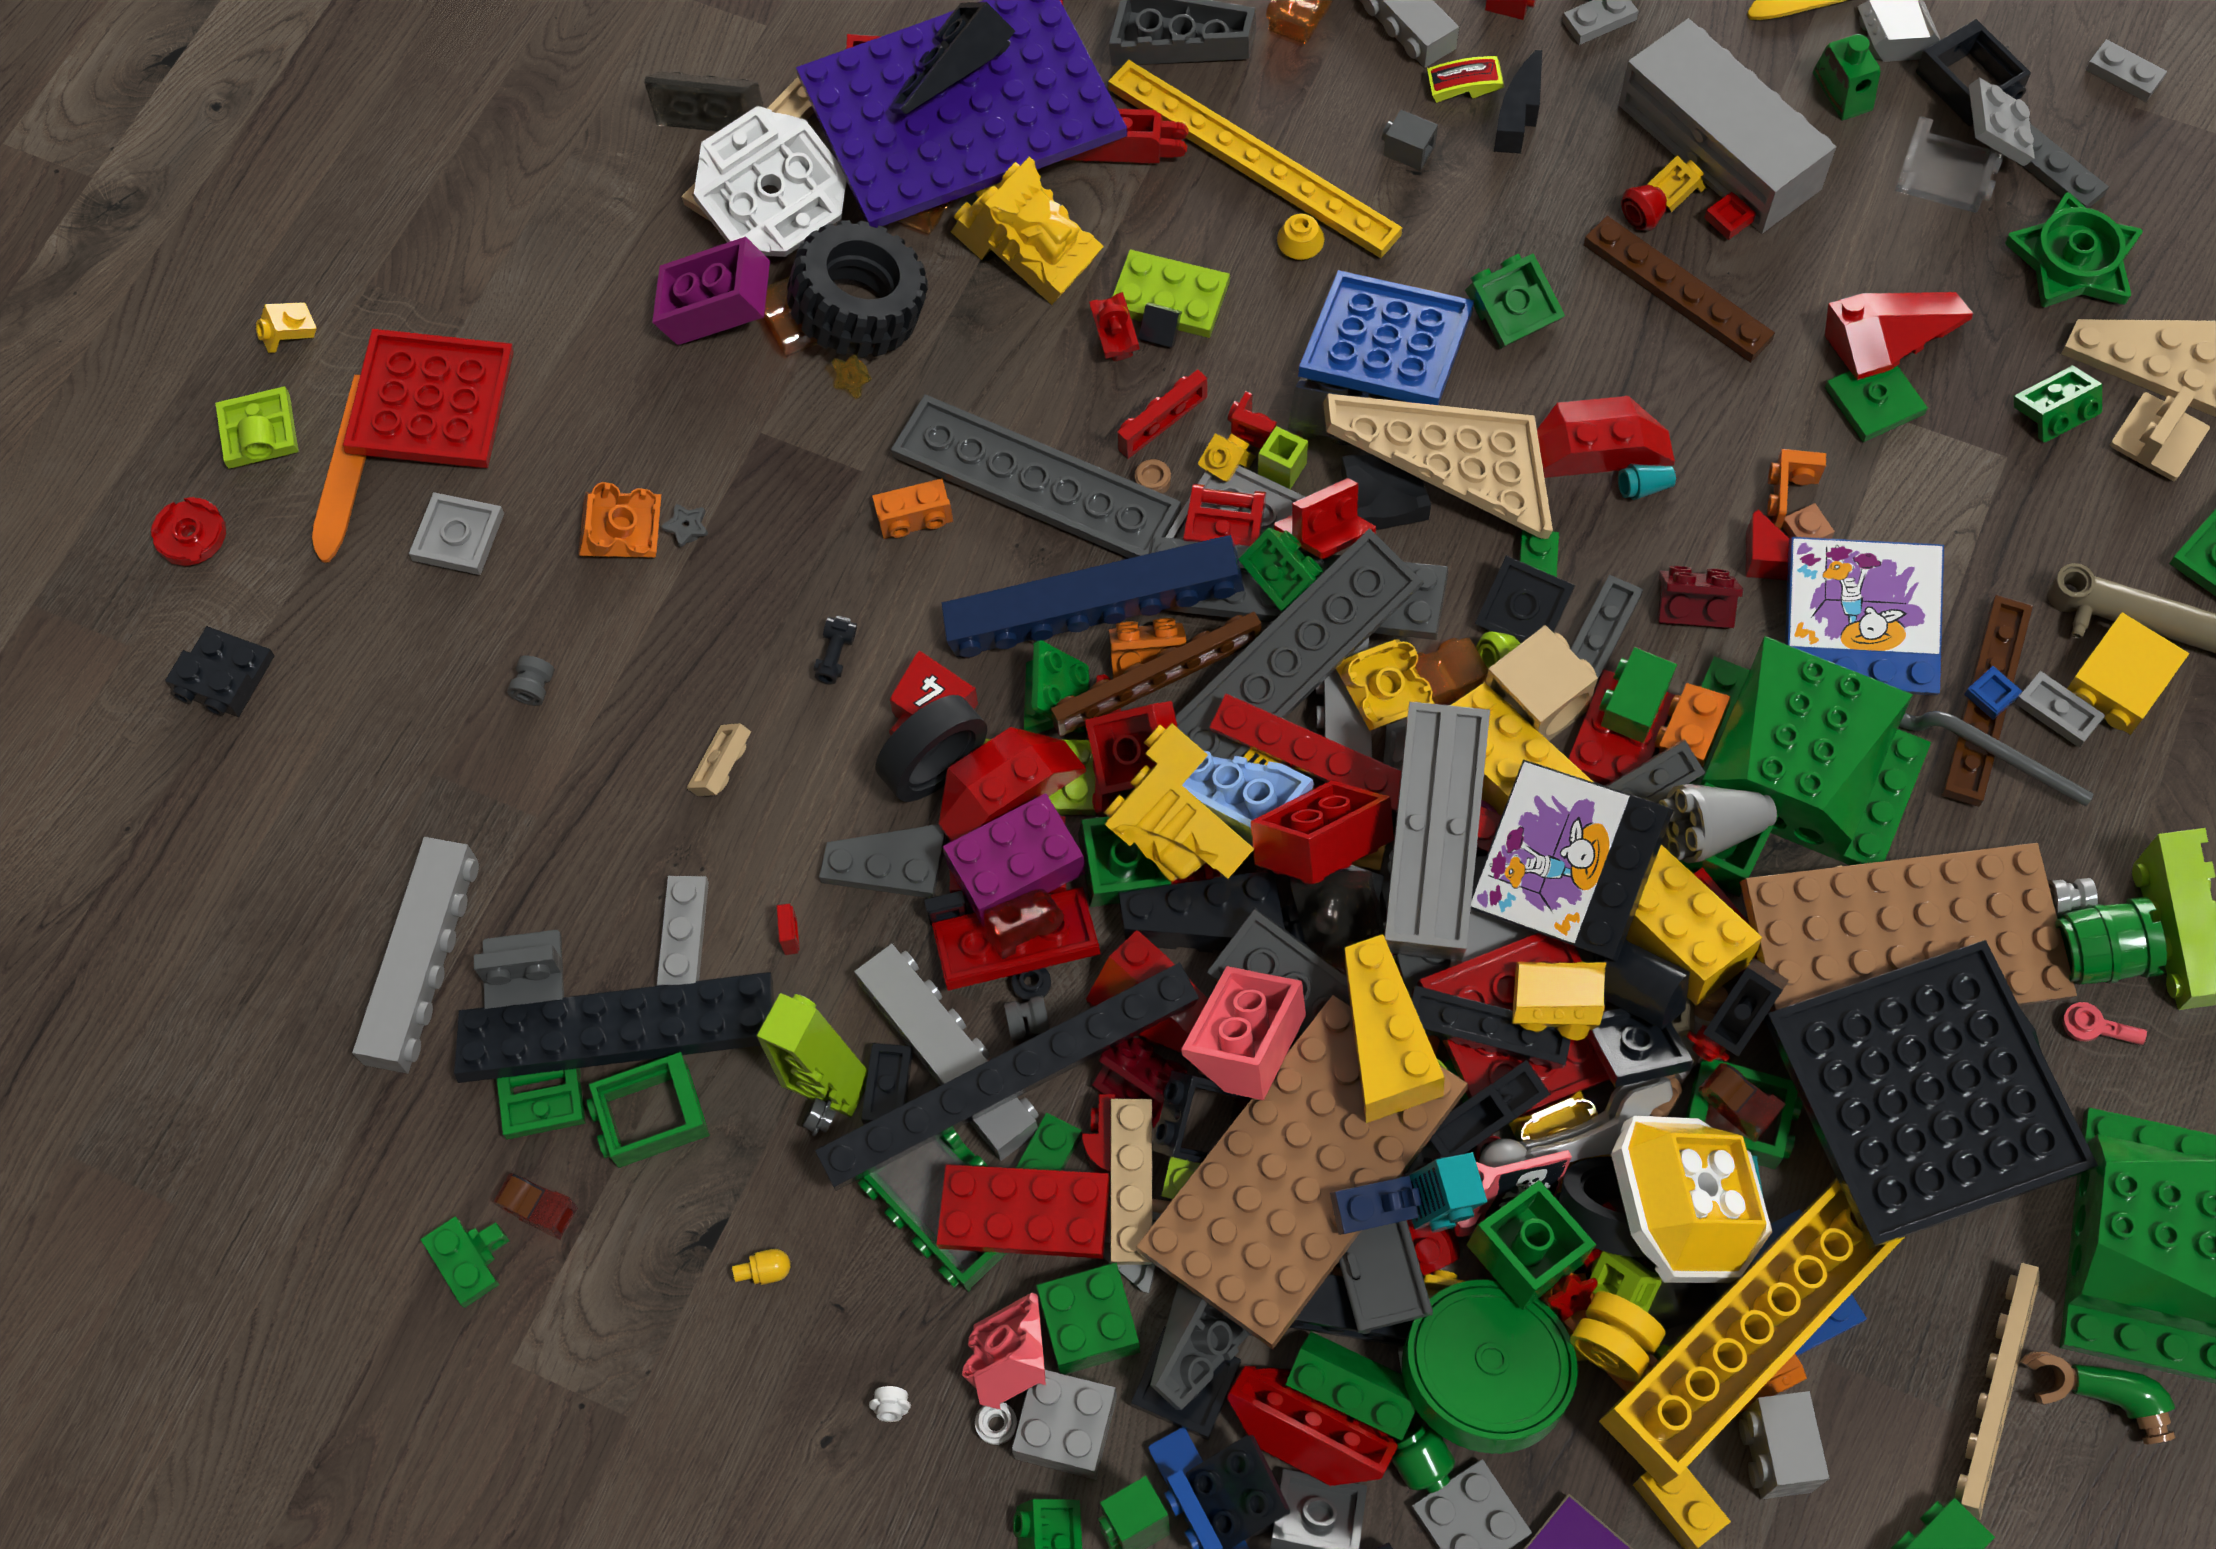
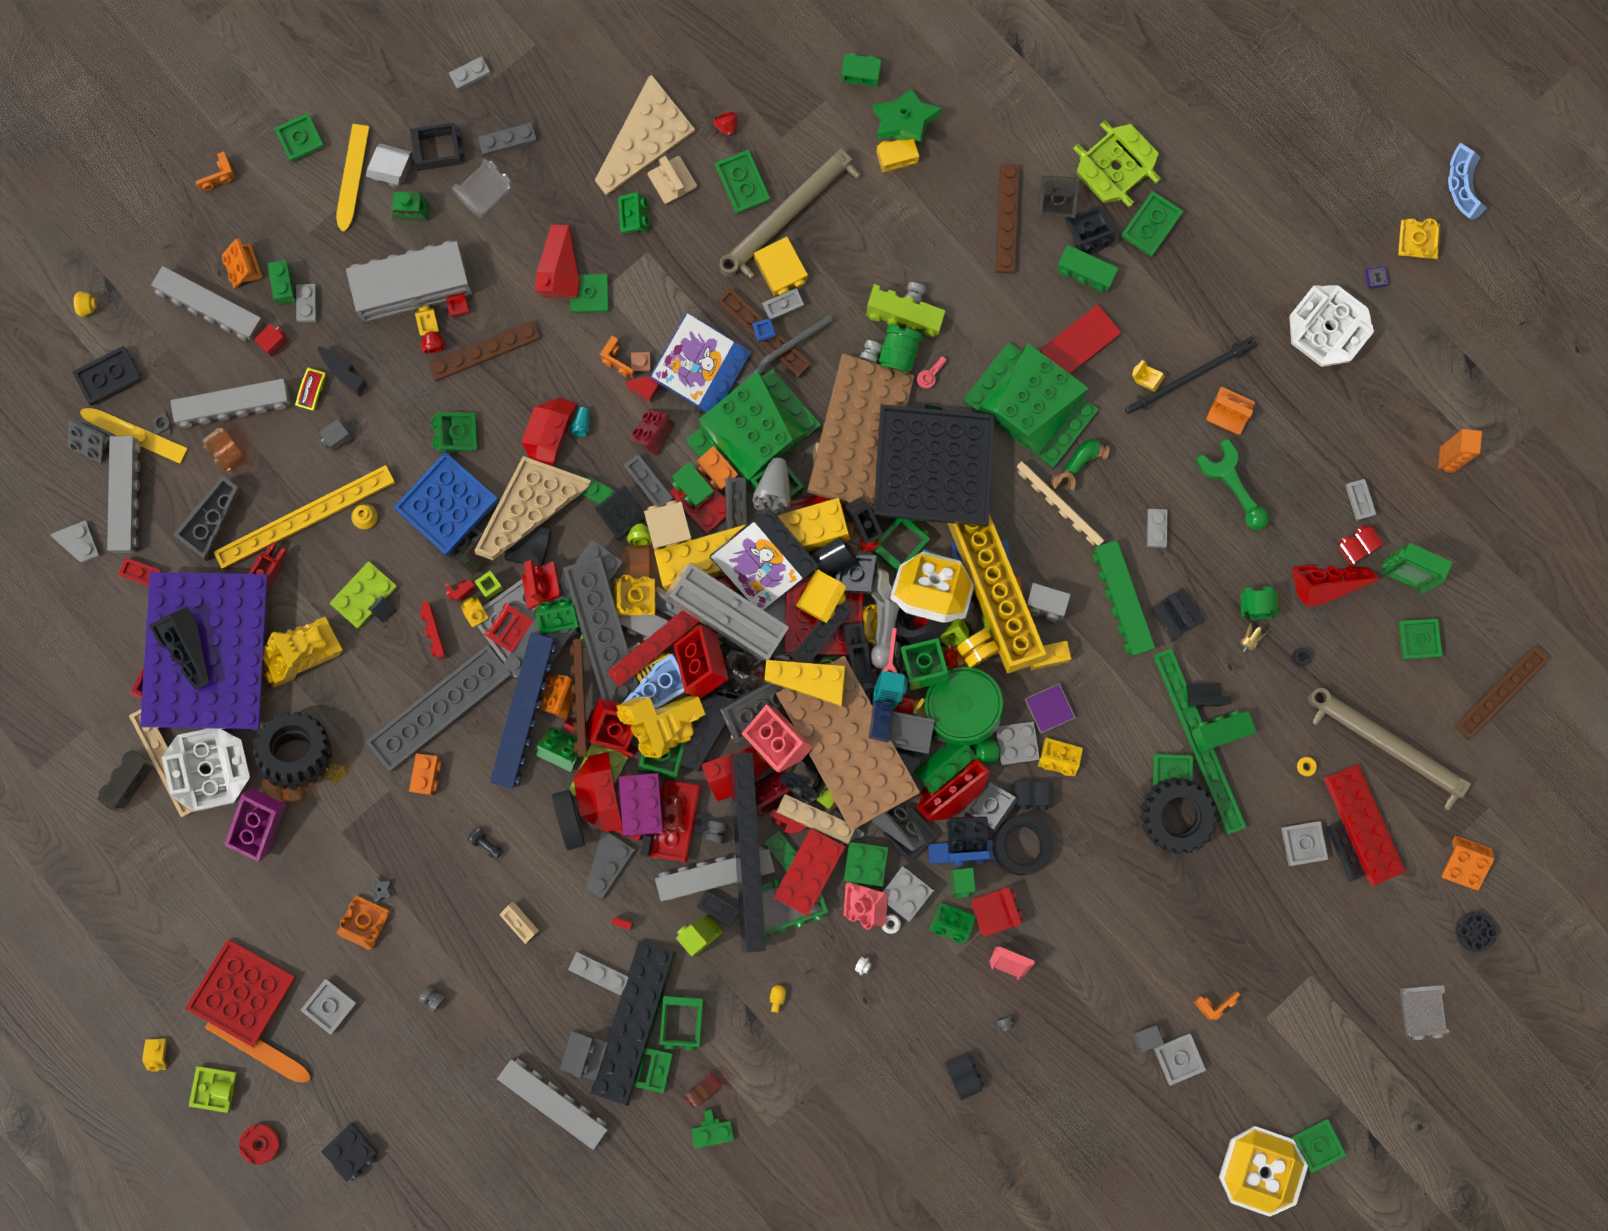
camera: 75 degrees left, 15 degrees up
(818, 1116) = (719, 945): dark grey plate -> none
(925, 683) = (536, 810): red torso -> none
(1114, 327) = (372, 631): red hips -> none
(1153, 475) = (464, 650): medium nougat tile -> none
(1740, 1101) = (900, 543): clear red leg -> none
(2001, 121) = (476, 153): light grey plate -> none
(2077, 253) = (558, 146): green plate -> none

